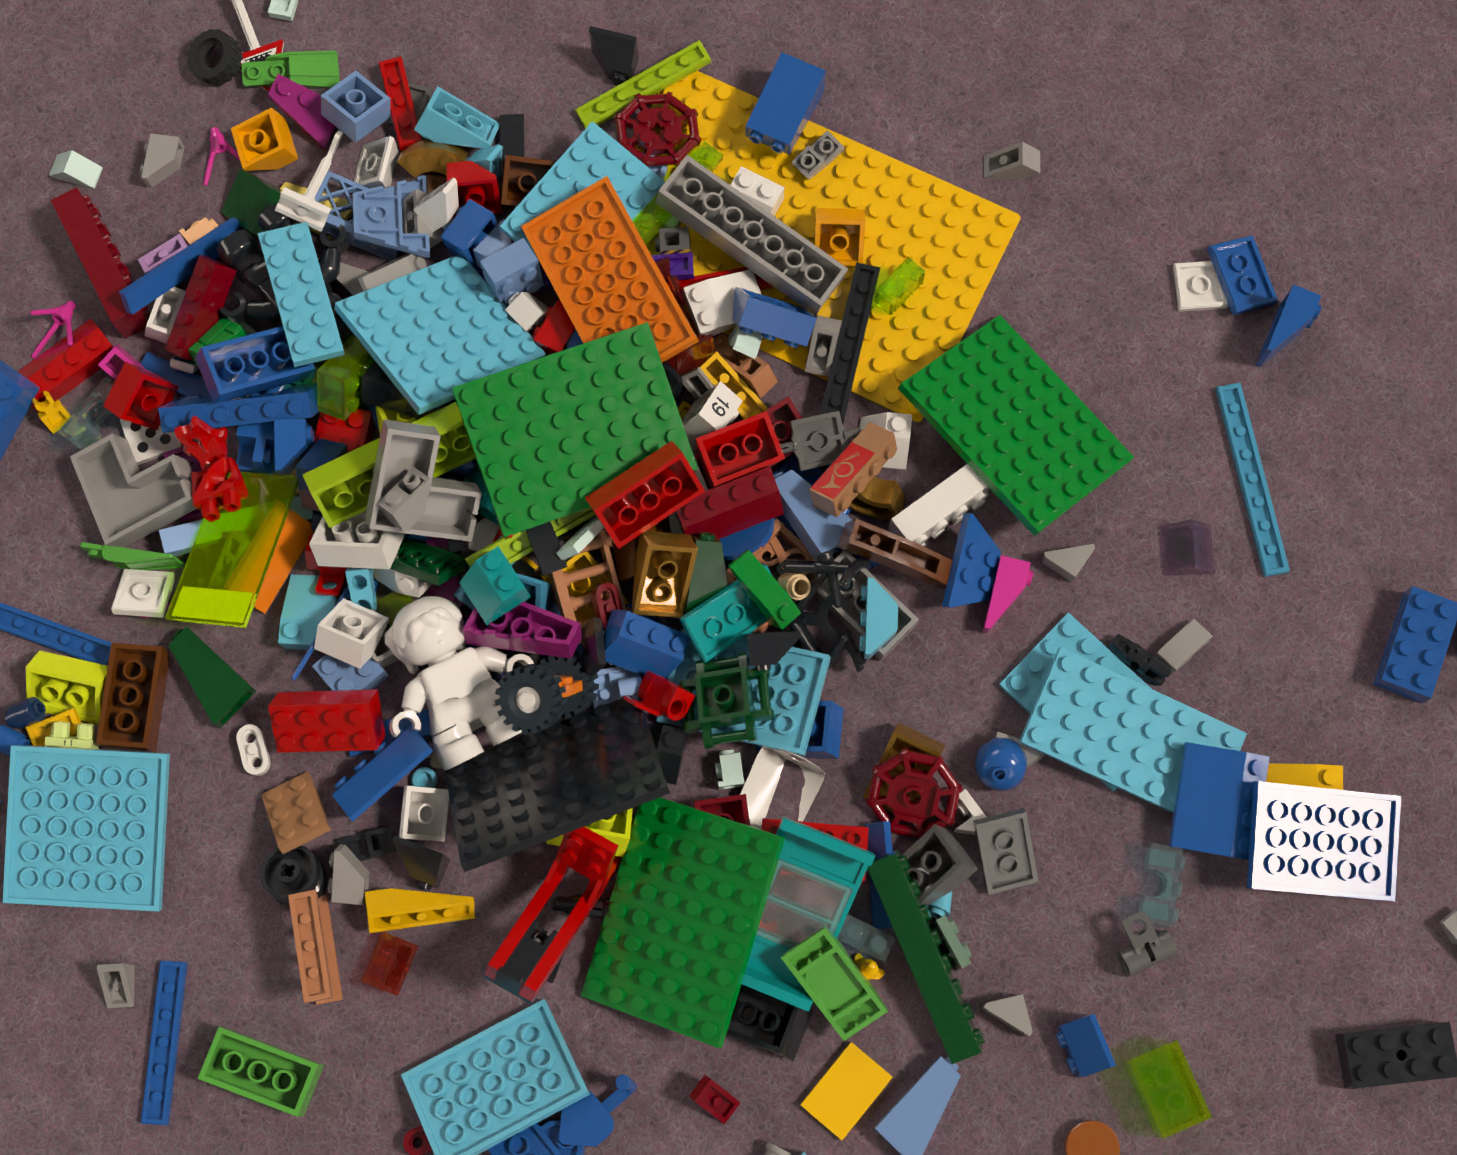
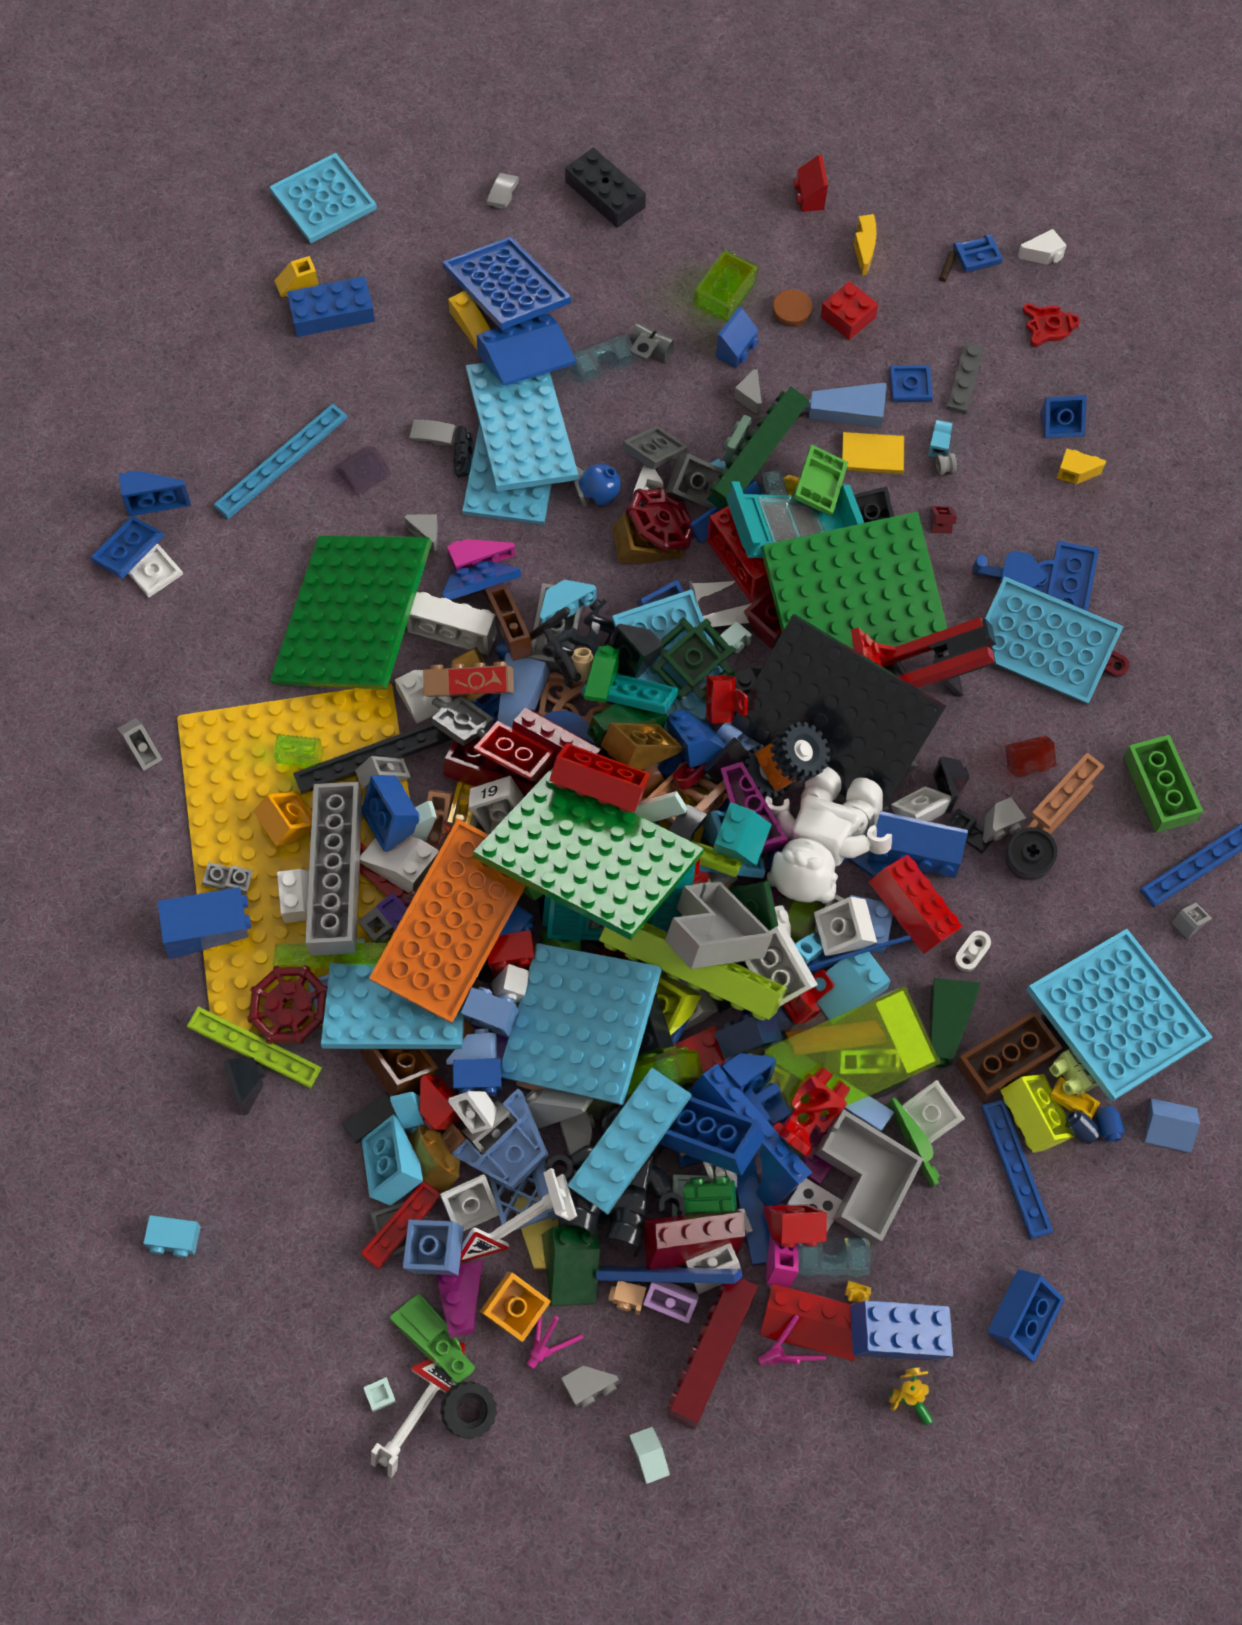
camera: 130 degrees left, 10 degrees down
(295, 812) = (990, 883): medium nougat plate -> none
(406, 500) = (731, 921): light grey slope -> none
(407, 908) = (989, 772): yellow slope -> none

